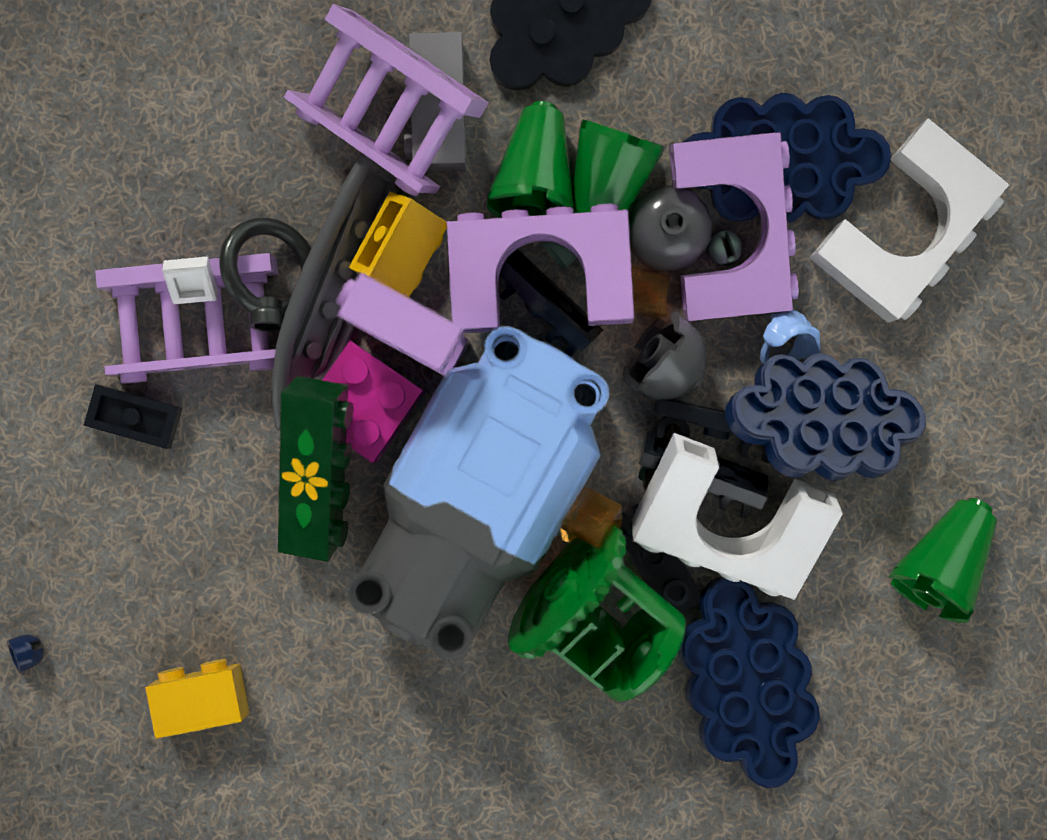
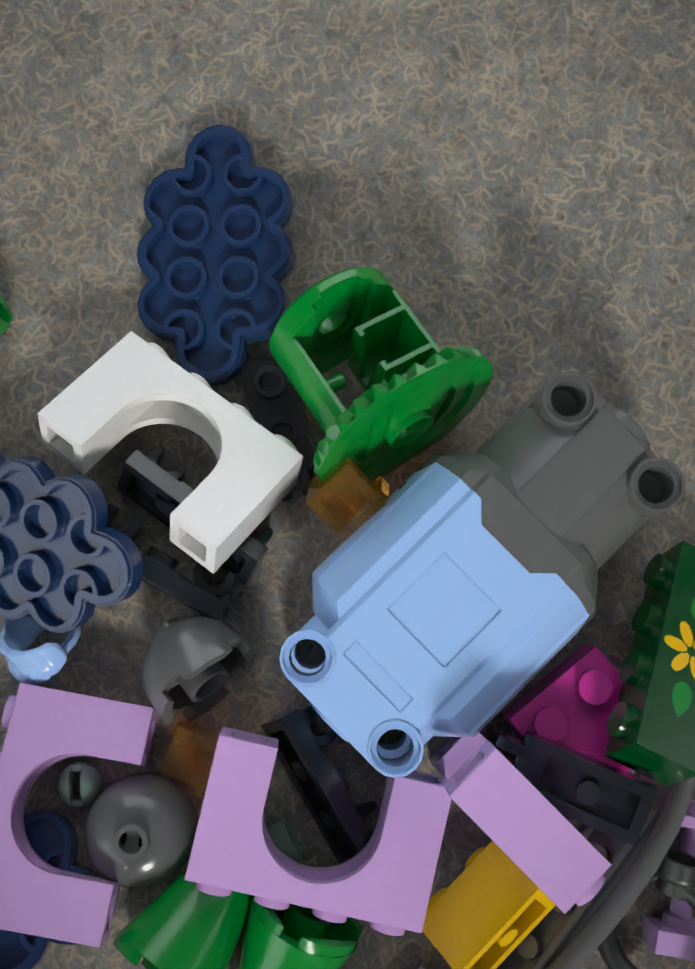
camera: 165 degrees left, 5 degrees down
(359, 358) = (583, 786): none -> black hinge

